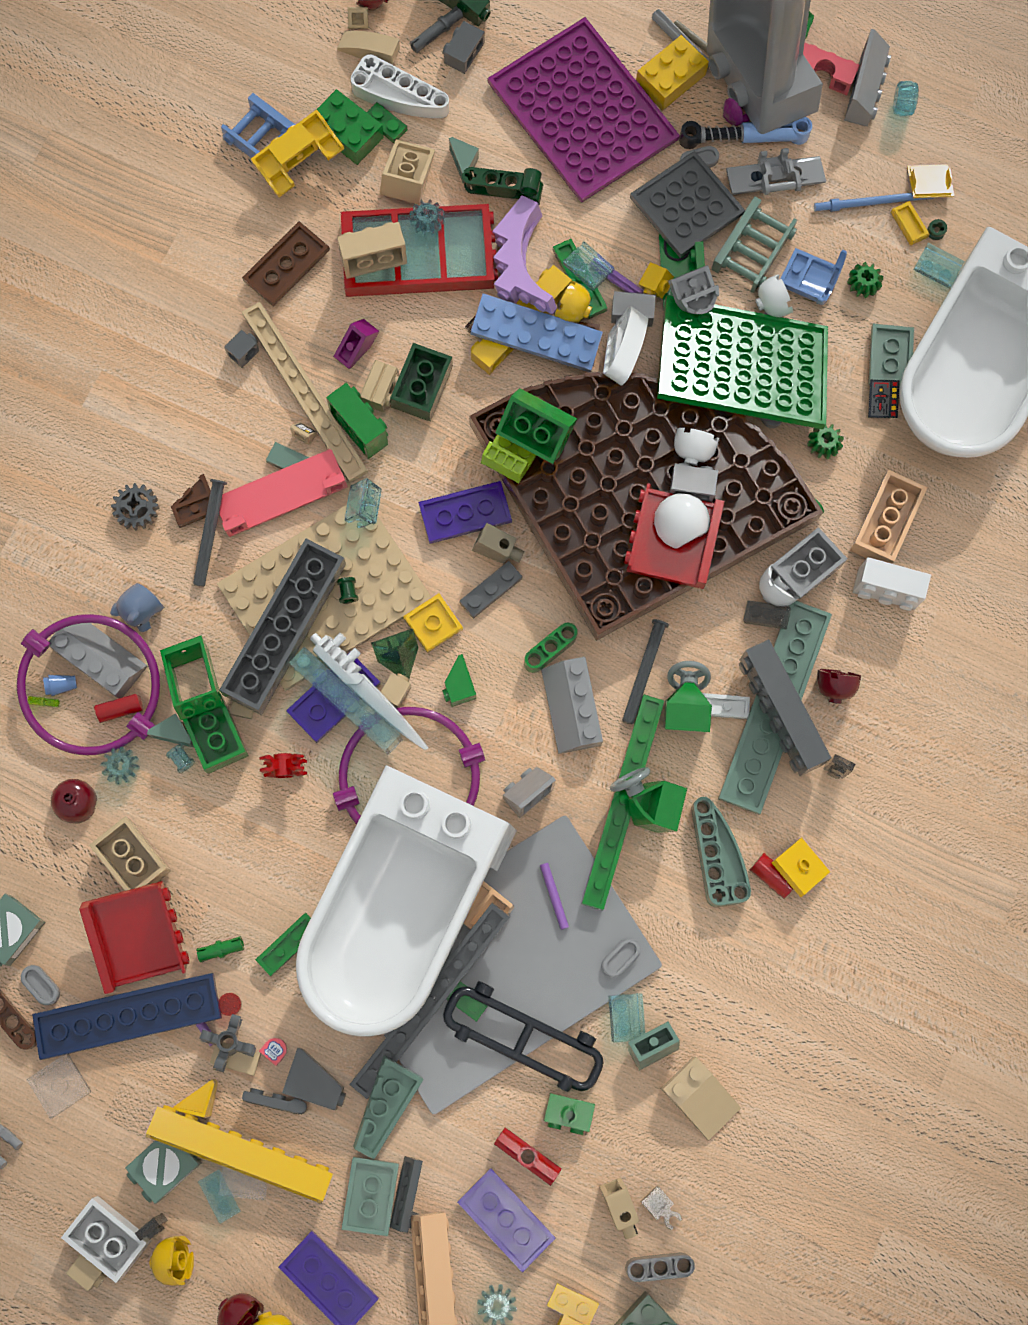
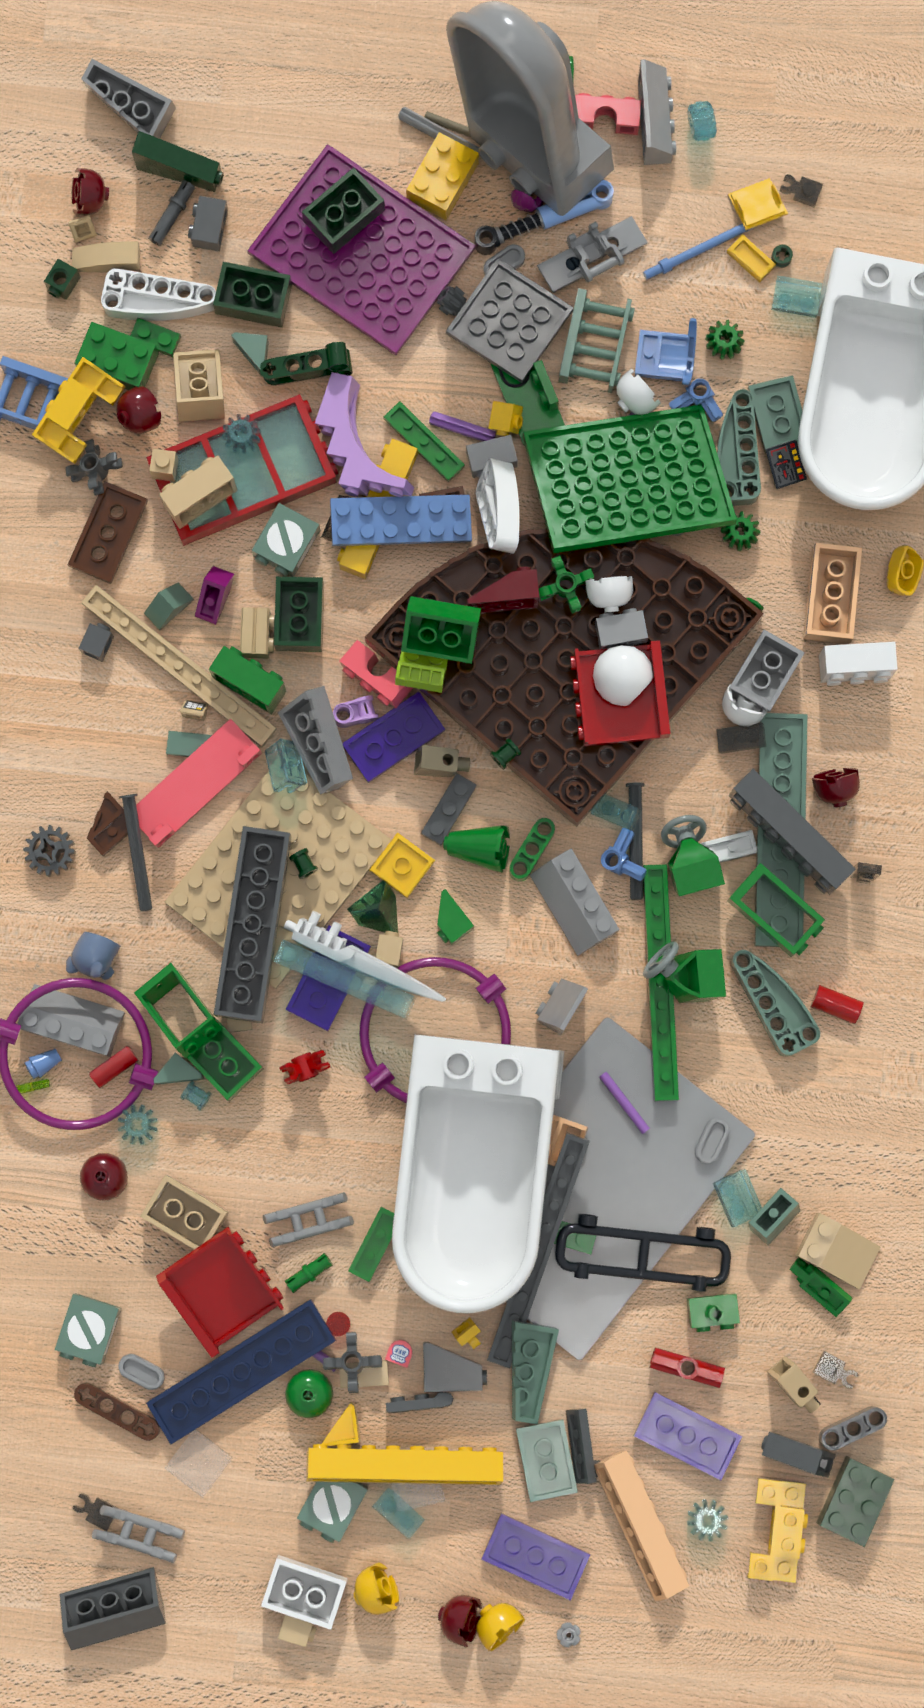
camera: 15 degrees left, 5 degrees up
(152, 1228) = (345, 1565): clear smoke plate -> none
(190, 1062) = (309, 1381): none -> green cylinder
(228, 891) = (295, 1212): none -> light grey piece
(294, 206) = (94, 467): none -> dark grey pin
(314, 338) = (168, 605): none -> sand green slope
(325, 44) = (61, 270): none -> dark green brick
(340, 1053) = (466, 1333): none -> yellow tile
(347, 172) = (138, 411): none -> dark red cylinder
(352, 219) = (164, 465): none -> tan brick
(398, 489) = (317, 739): none -> light grey wedge
(433, 318) = (285, 540): none -> sand green brick
(441, 480) = (356, 711): none -> lavender piece
(458, 441) = (359, 664): none -> coral arch
(478, 112) = (252, 294): none -> dark green brick
(507, 629) = (480, 846): none -> green cone
(555, 553) = (505, 753): none -> dark green bush
(574, 303) = (430, 475): yellow cylinder -> none
(579, 69) = (343, 210): none -> brick
(588, 265) = (429, 426): clear light blue plate -> none
(601, 1274) = (798, 1454): none -> dark grey slope
(605, 417) = (512, 592): none -> dark red slope
(626, 687) = (623, 865): none -> medium blue axle
(636, 640) = (617, 812): none -> clear light blue plate
(641, 429) = (576, 580): none -> green pin
(643, 172) = (451, 300): none -> dark grey gear
(674, 1125) = (820, 1287): none -> green hinge
(695, 291) = (552, 419): light grey slope -> none
(714, 752) = (735, 901): none -> green window
(801, 867) = (861, 987): yellow plate -> none
(831, 322) = (706, 400): none -> medium blue axle
(841, 379) = (732, 457): none -> sand green beam
(957, 521) = (904, 570): none -> yellow piece
(974, 184) = (805, 191): none -> clear smoke plate

